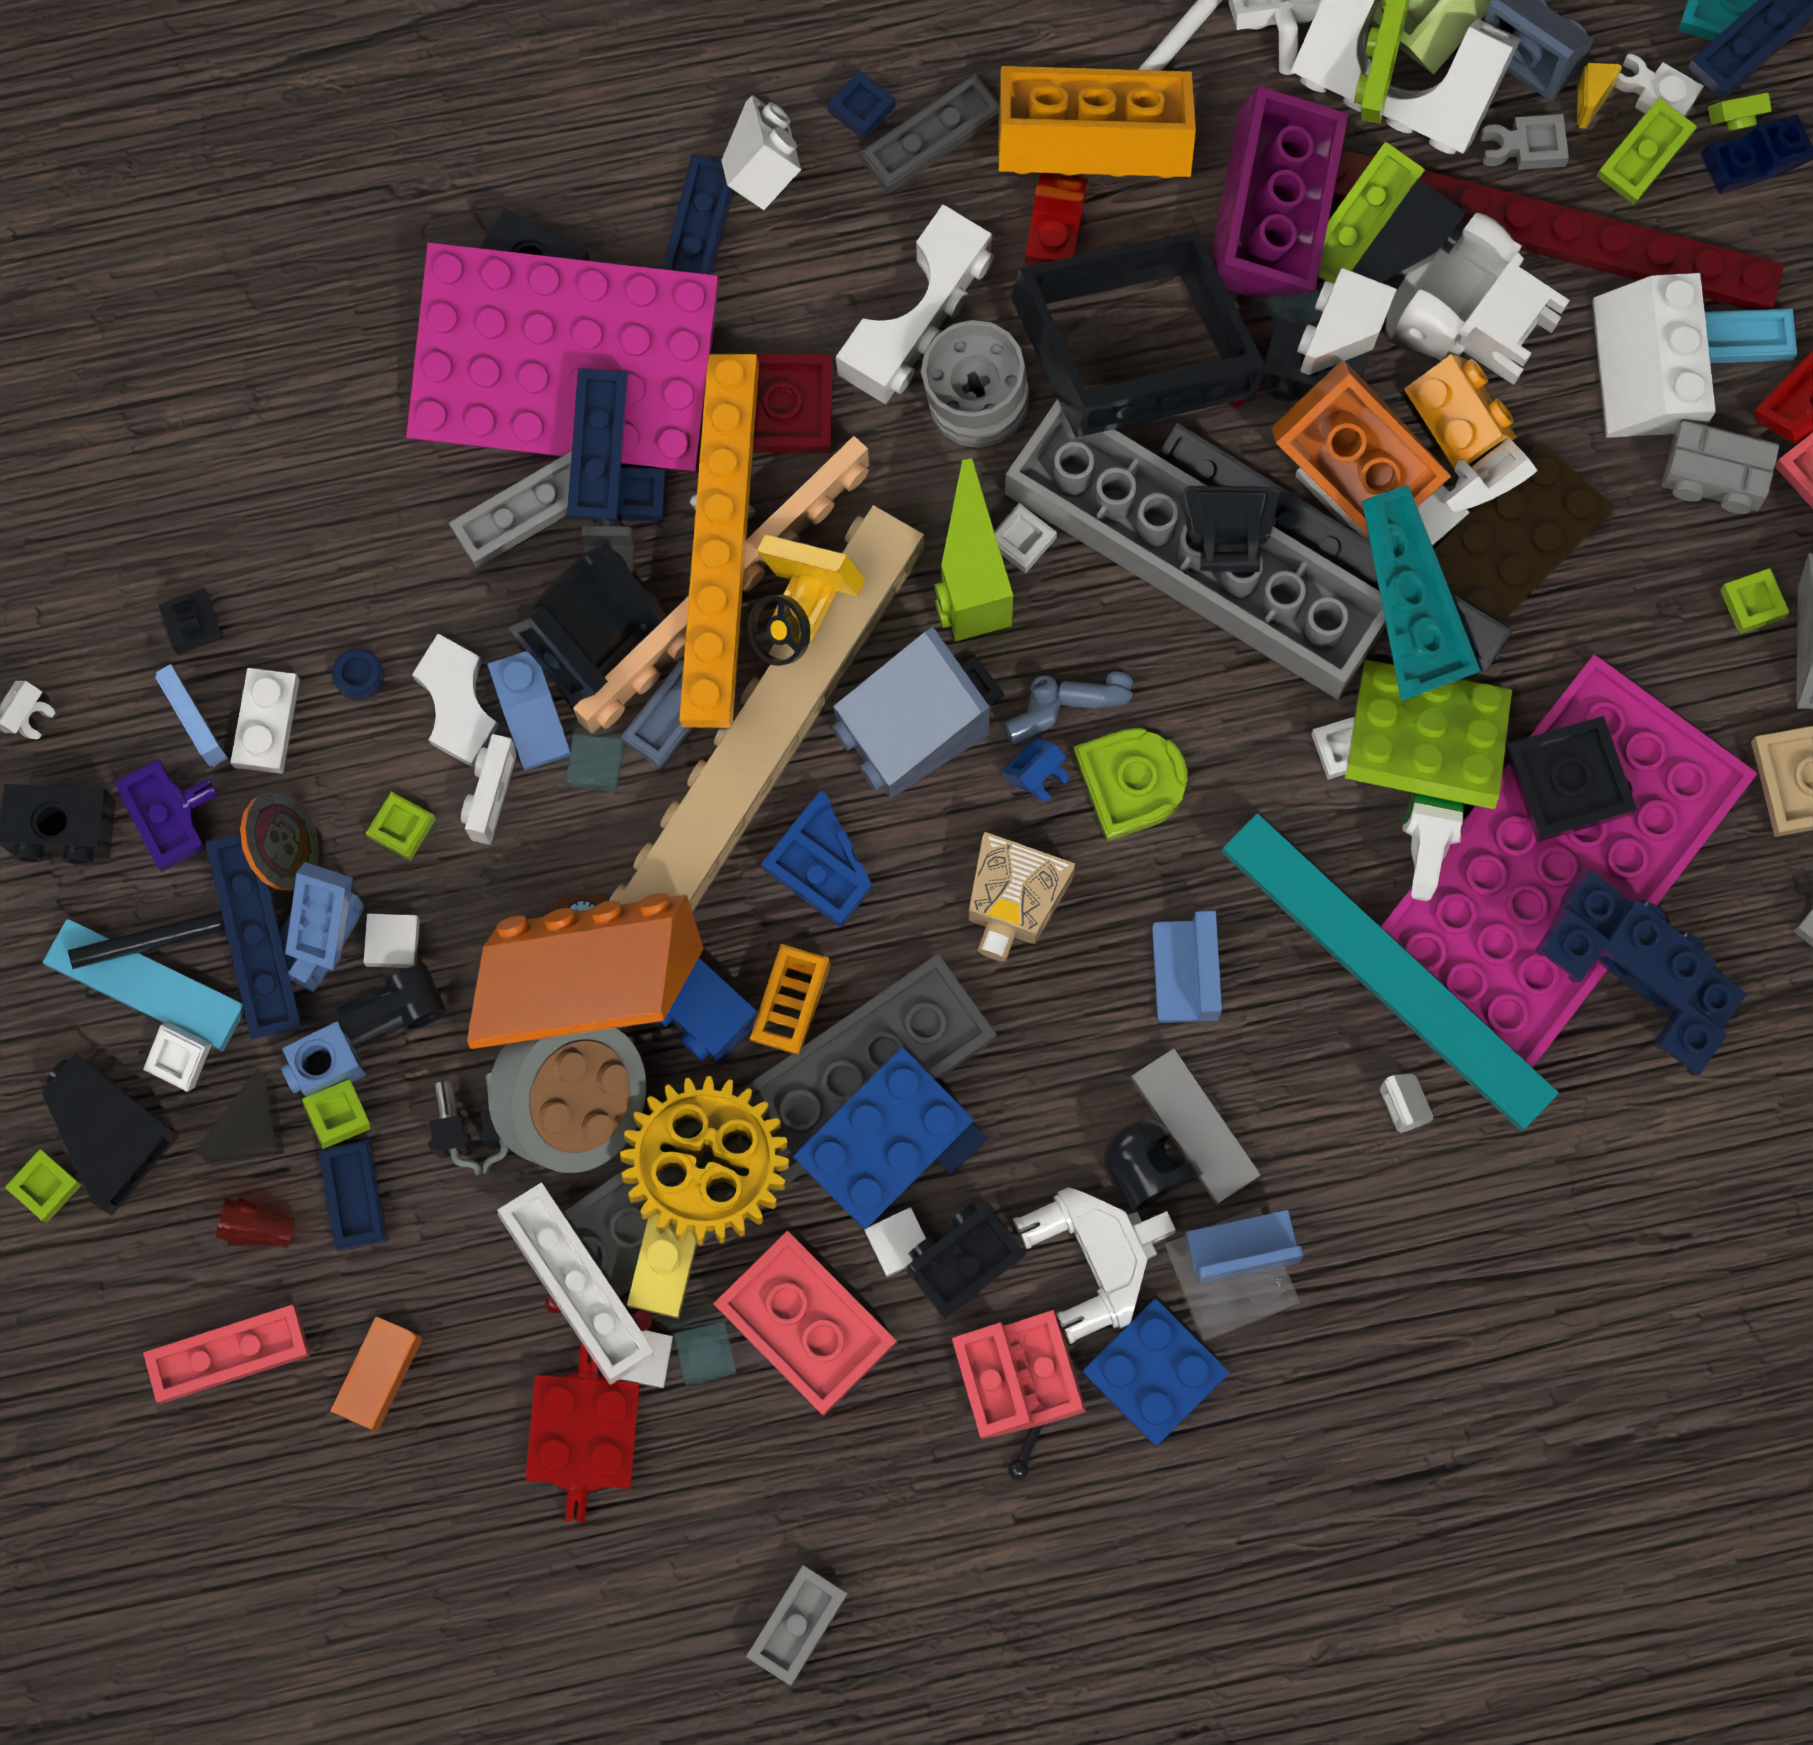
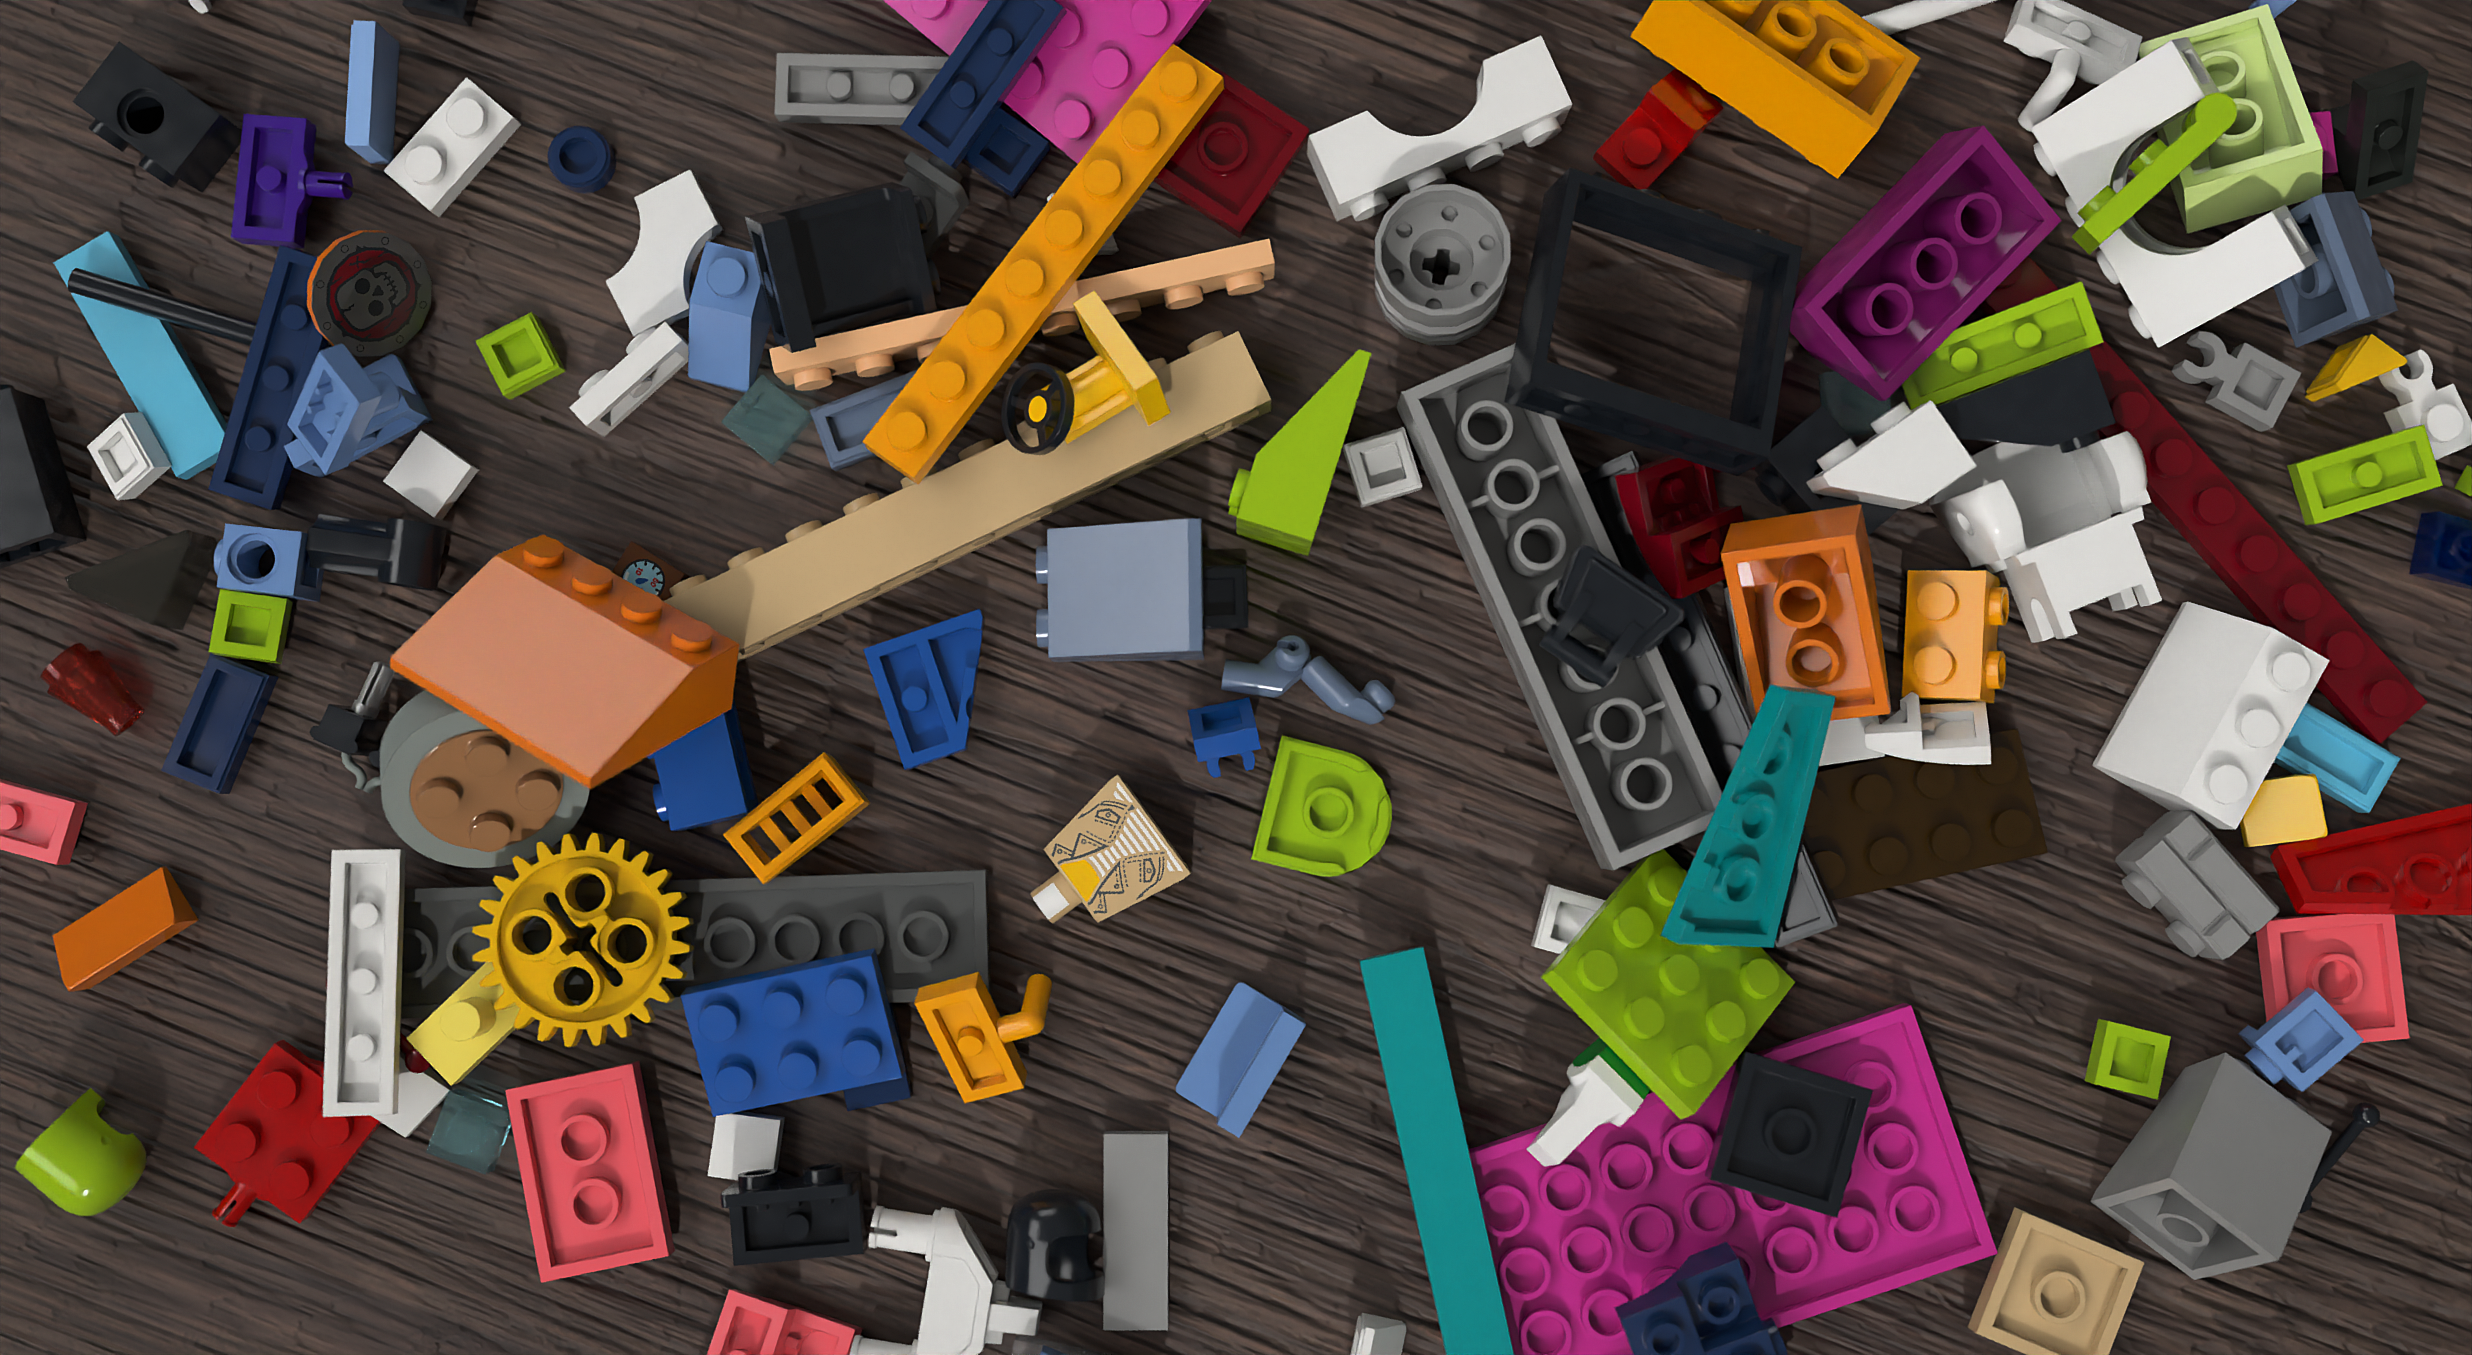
camera: 30 degrees right, 10 degrees up
(458, 1533) = (84, 1160): none -> lime helmet
(1005, 1061) = (975, 1038): none -> light orange plate
(1236, 446) = (1677, 522): none -> dark red slope
(1742, 387) = (2284, 812): none -> yellow slope

